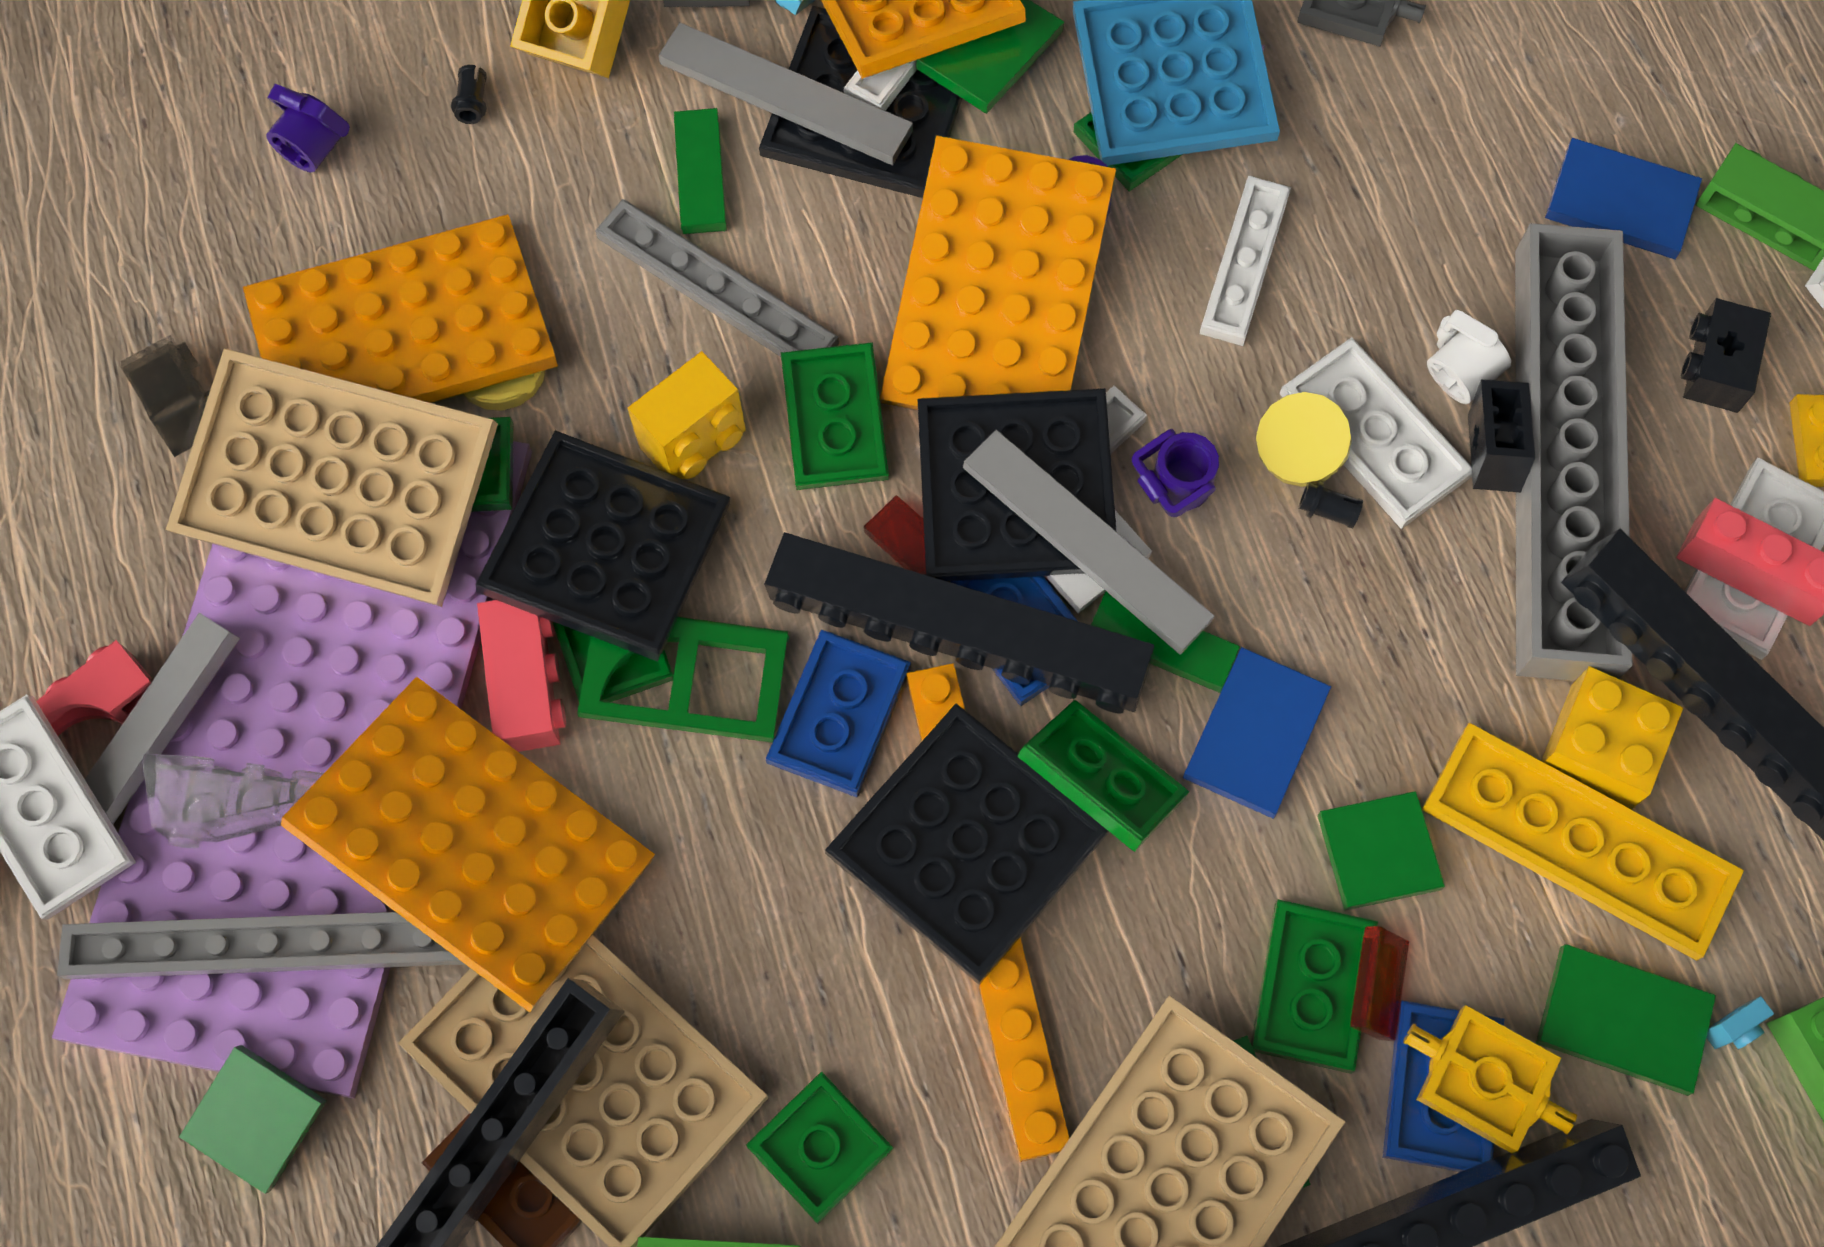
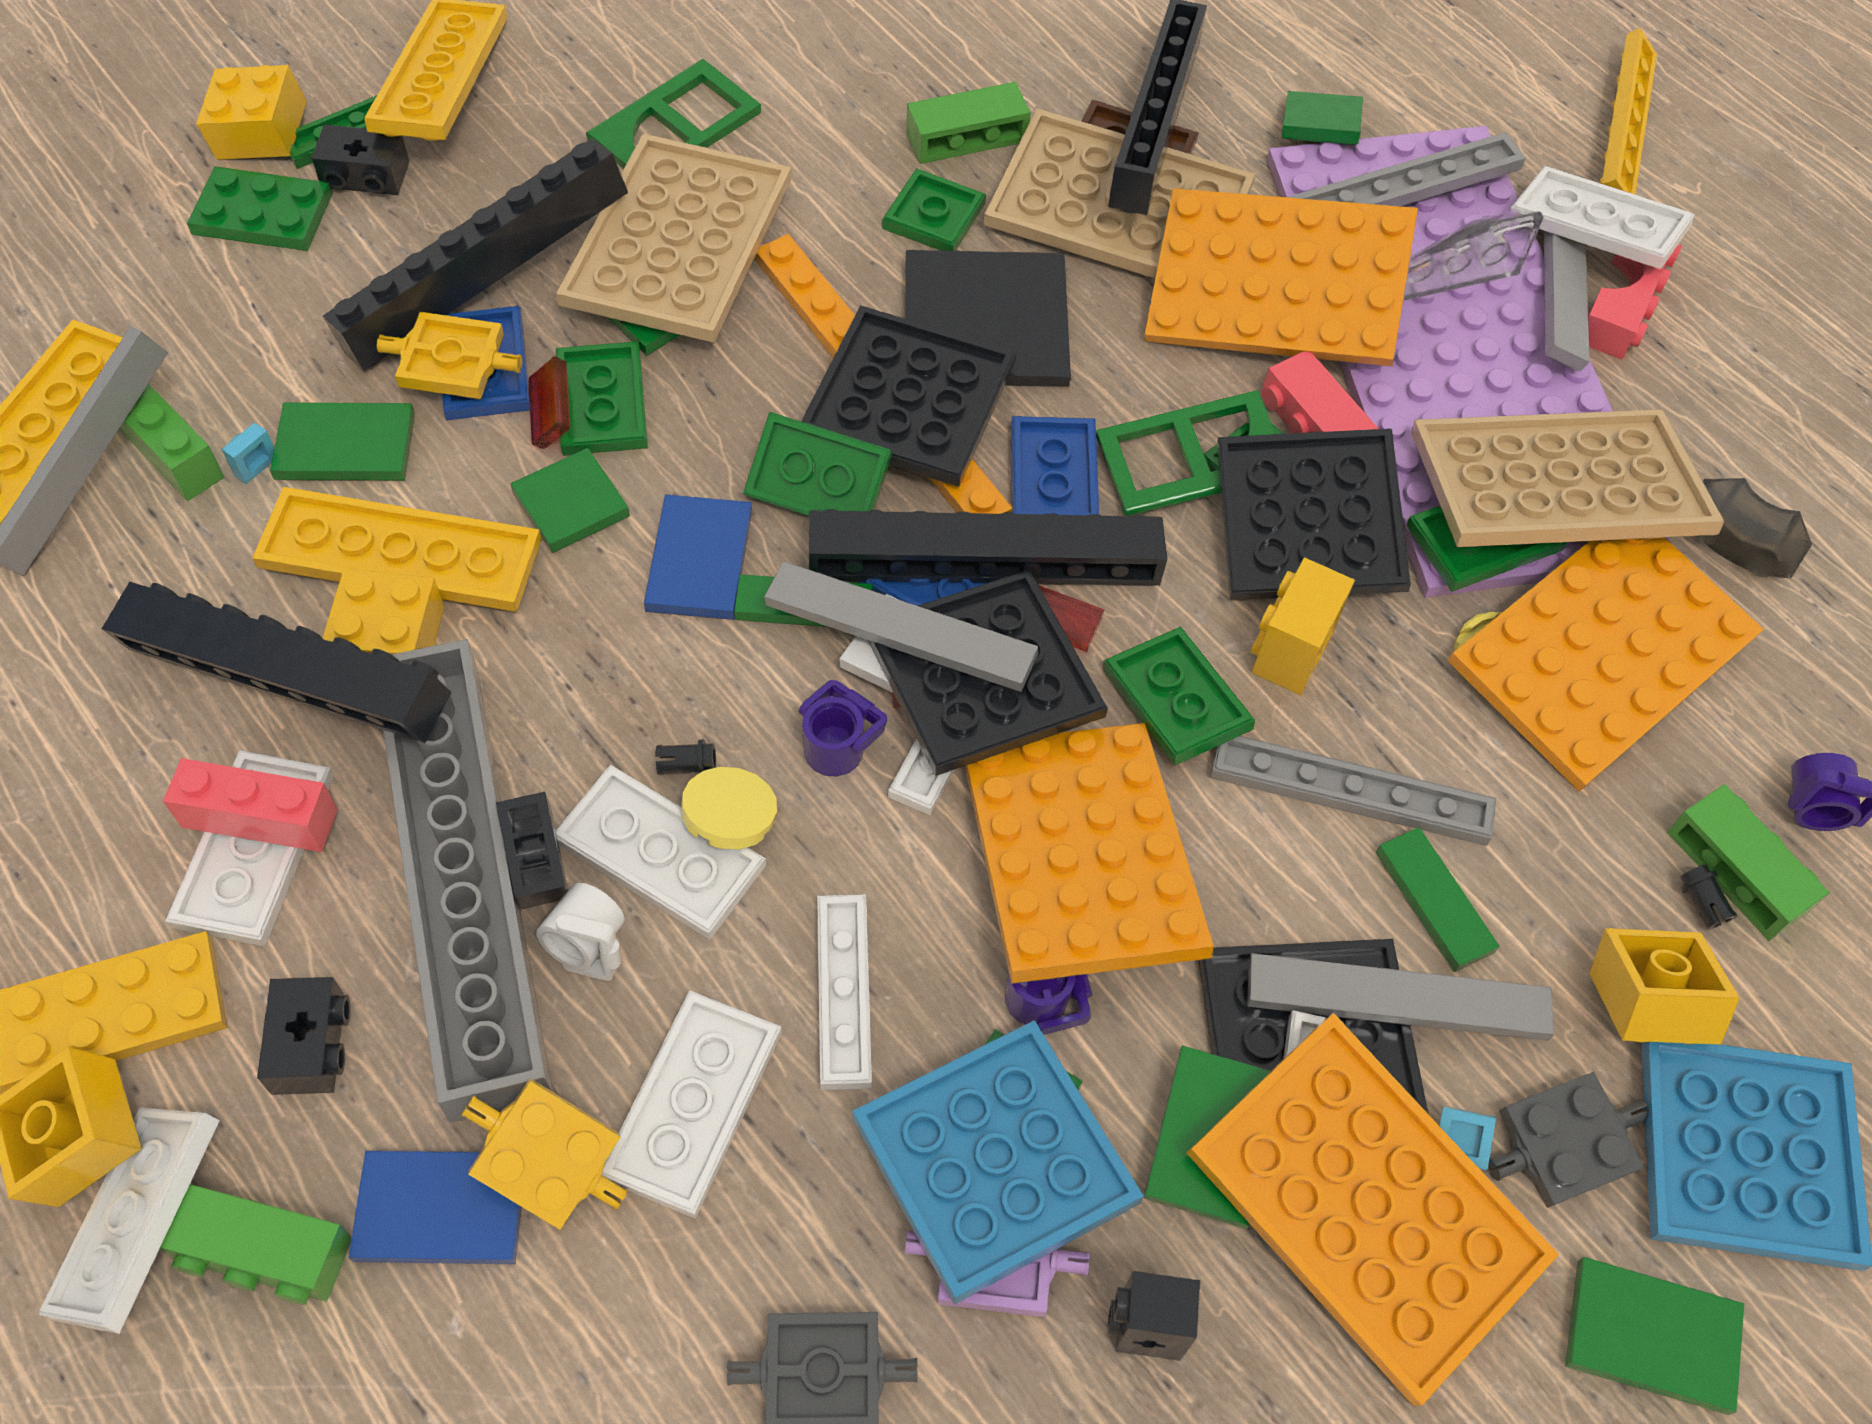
camera: 155 degrees right, 10 degrees down
(415, 106) = (1750, 860): none -> bright green brick
(815, 960) = (997, 300): none -> black tile
(1399, 214) = (691, 1104): none -> white tile
(1538, 185) = (544, 1153): none -> yellow plate

